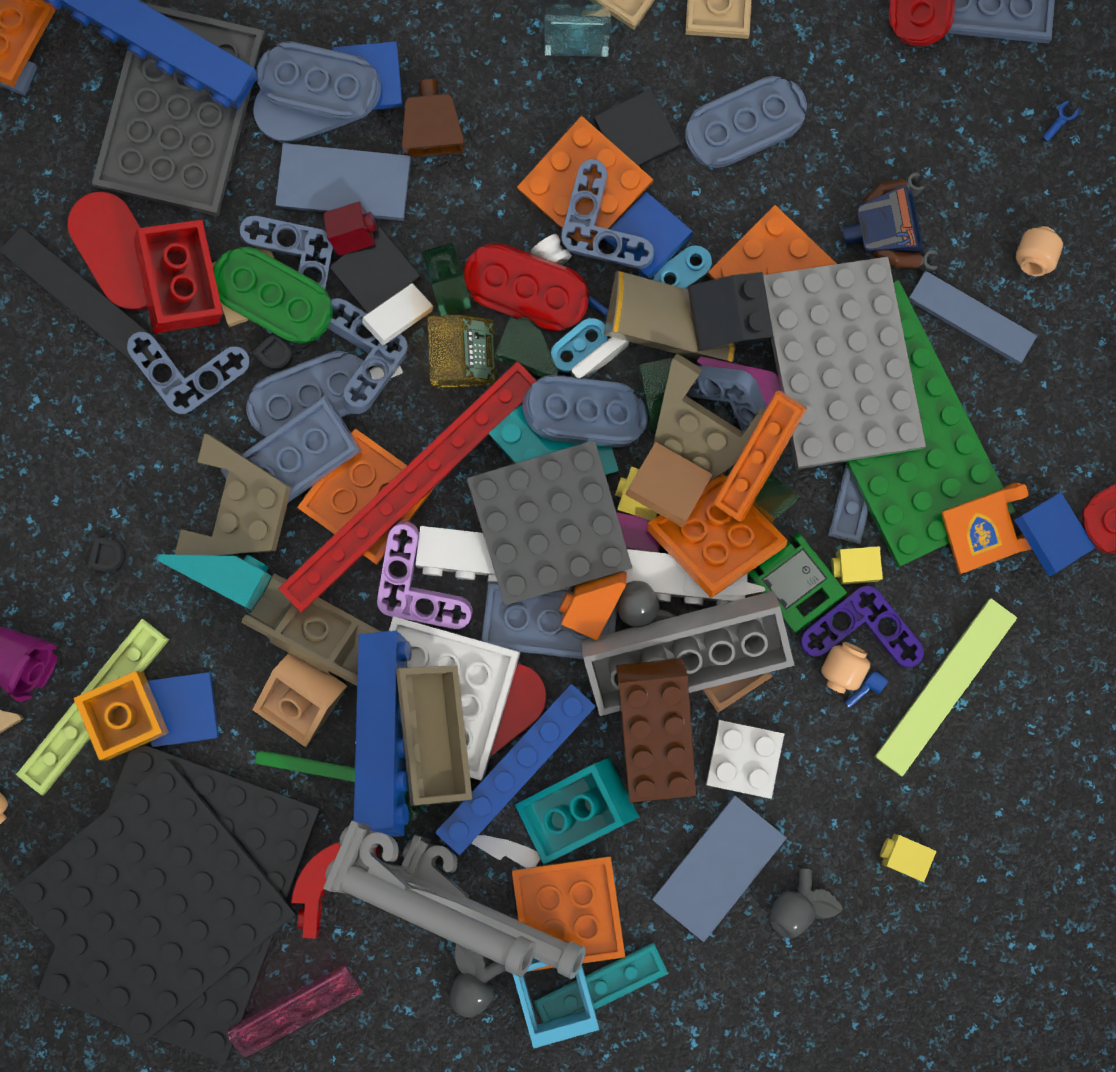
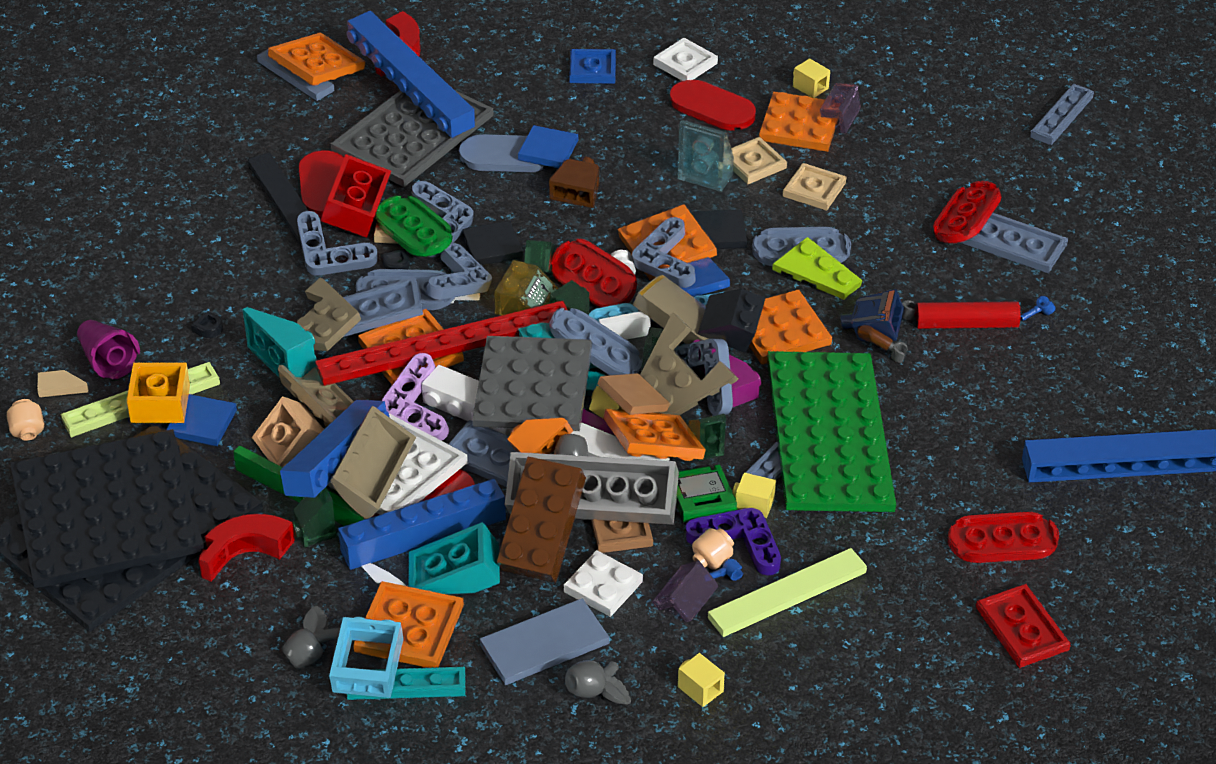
camera: 25 degrees right, 40 degrees down
(294, 1011) = (161, 610): clear pink plate -> none
(318, 81) = (513, 136): sand blue tile -> none
(334, 177) = (500, 195): sand blue tile -> none
(350, 228) = (488, 210): dark red brick -> none
(397, 314) = (490, 261): white tile -> none
(435, 903) = (274, 473): light grey arch -> none
(760, 455) = (708, 387): orange tile -> none
(784, 160) = (813, 264): none -> lime wing
(838, 736) = (687, 590): none -> clear purple panel
(844, 360) = (801, 373): light grey plate -> none
(972, 318) = (917, 392): sand blue tile -> none
(983, 529) = (865, 502): orange flag -> none
(985, 163) = (967, 314): none -> red brick
(1039, 251) = (986, 367): light nougat head -> none
(1054, 534) = (920, 521): blue tile -> none

